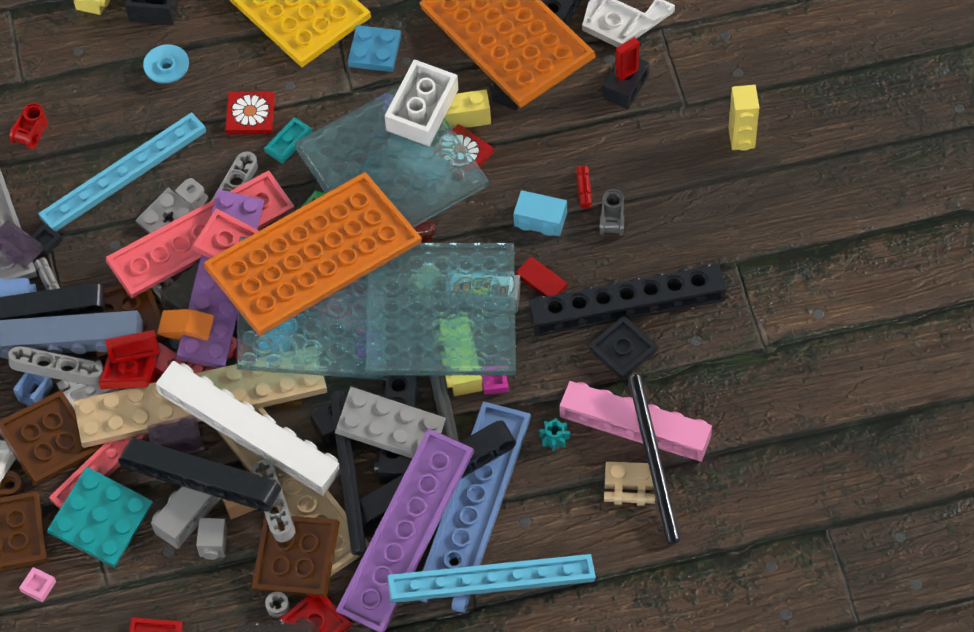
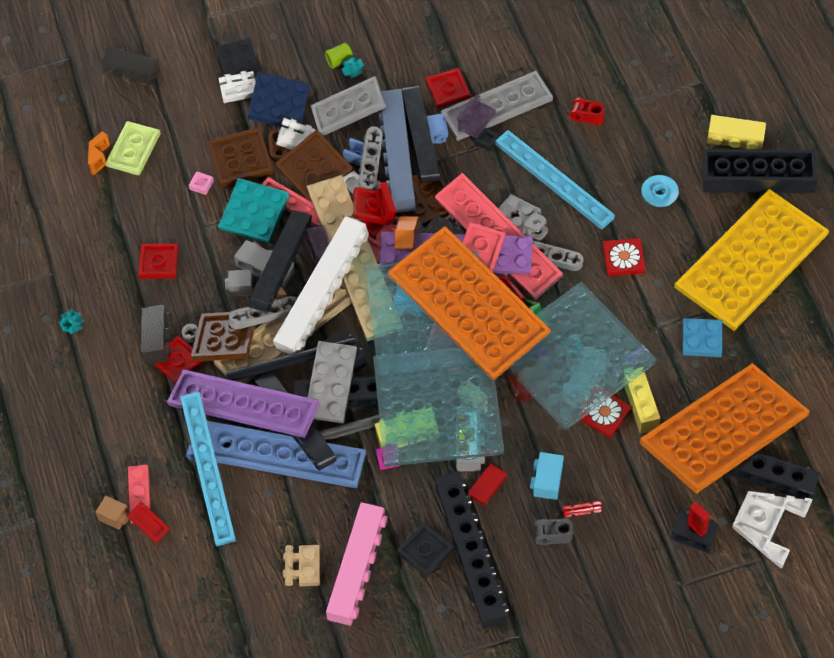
camera: 85 degrees right, 0 degrees up
(46, 274) = (454, 147): light grey axle -> none
(282, 145) = (600, 286): teal plate -> none
(421, 102) = (620, 360): white brick -> none
(551, 428) = (340, 499): teal gear -> none
(654, 459) = (316, 575): black axle -> none
(743, 117) = (654, 622): light yellow brick -> none

